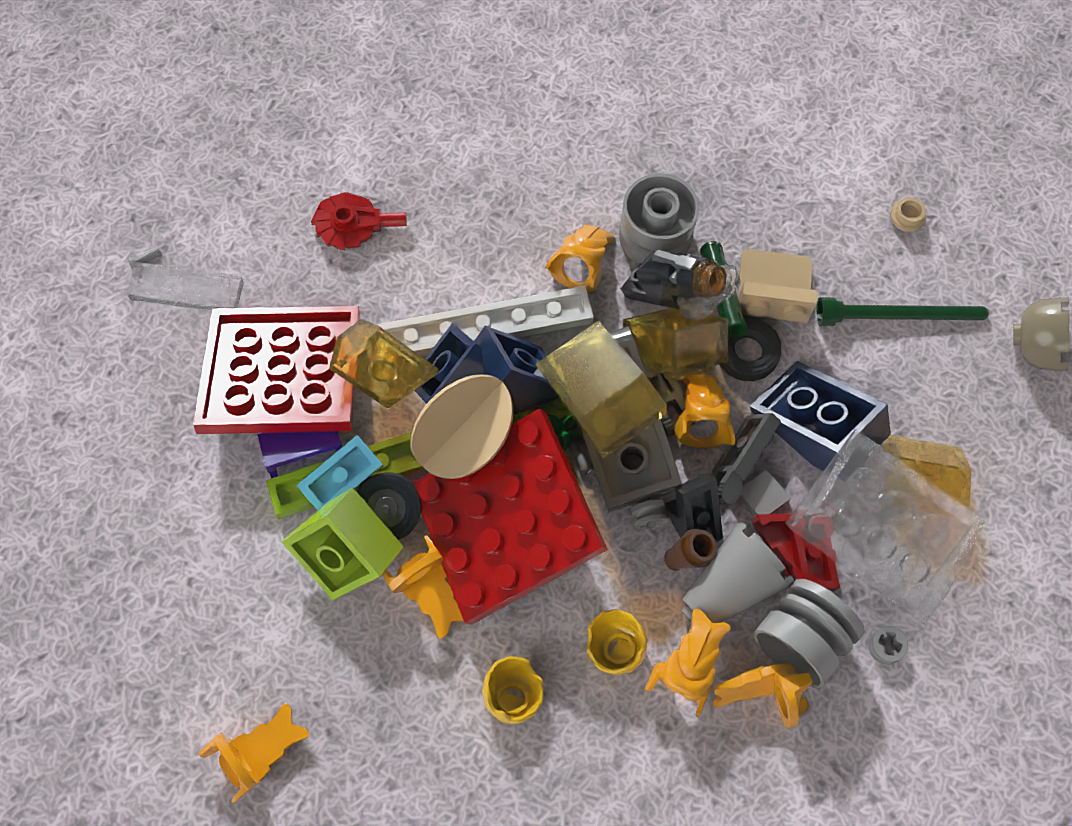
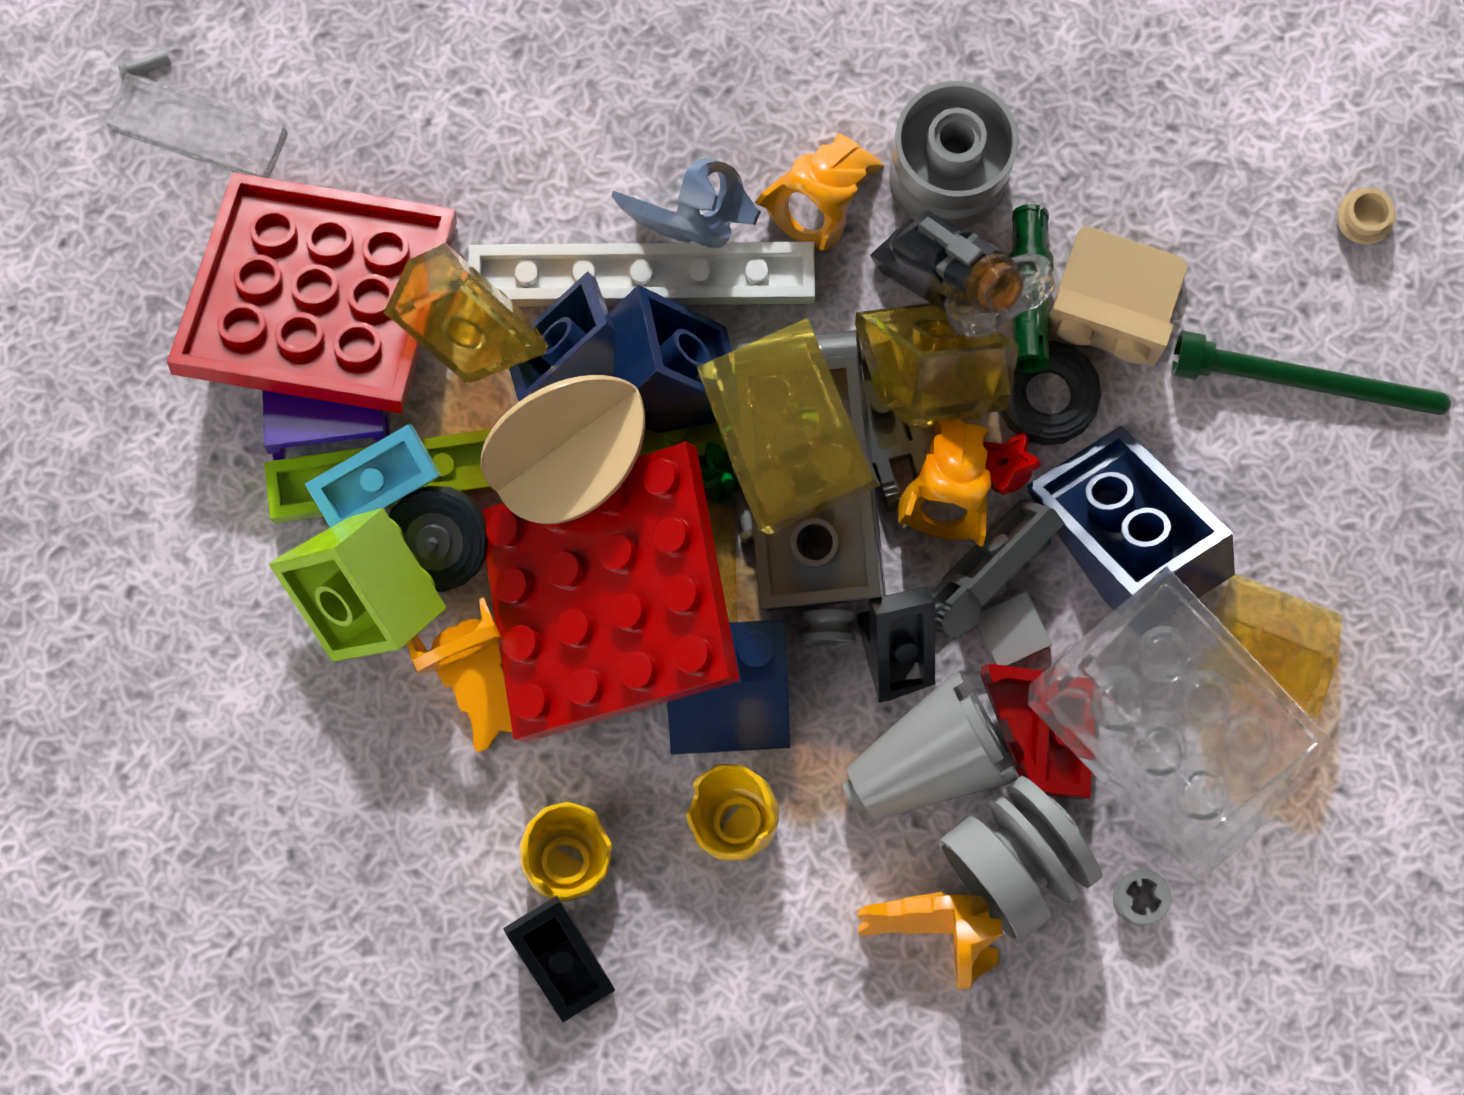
camera: 15 degrees right, 10 degrees up
(250, 756) = (175, 866): light orange hair -> none
(350, 220) = (469, 59): red piece -> none
(508, 285) = (697, 194): none -> sand blue hair
(524, 761) = (559, 958): none -> black slope
(607, 577) = (743, 713): none -> dark blue slope
(691, 666) = (830, 876): light orange hair -> none
(692, 550) = (877, 698): reddish brown cone -> none
(738, 393) = (1017, 460): none -> red plate

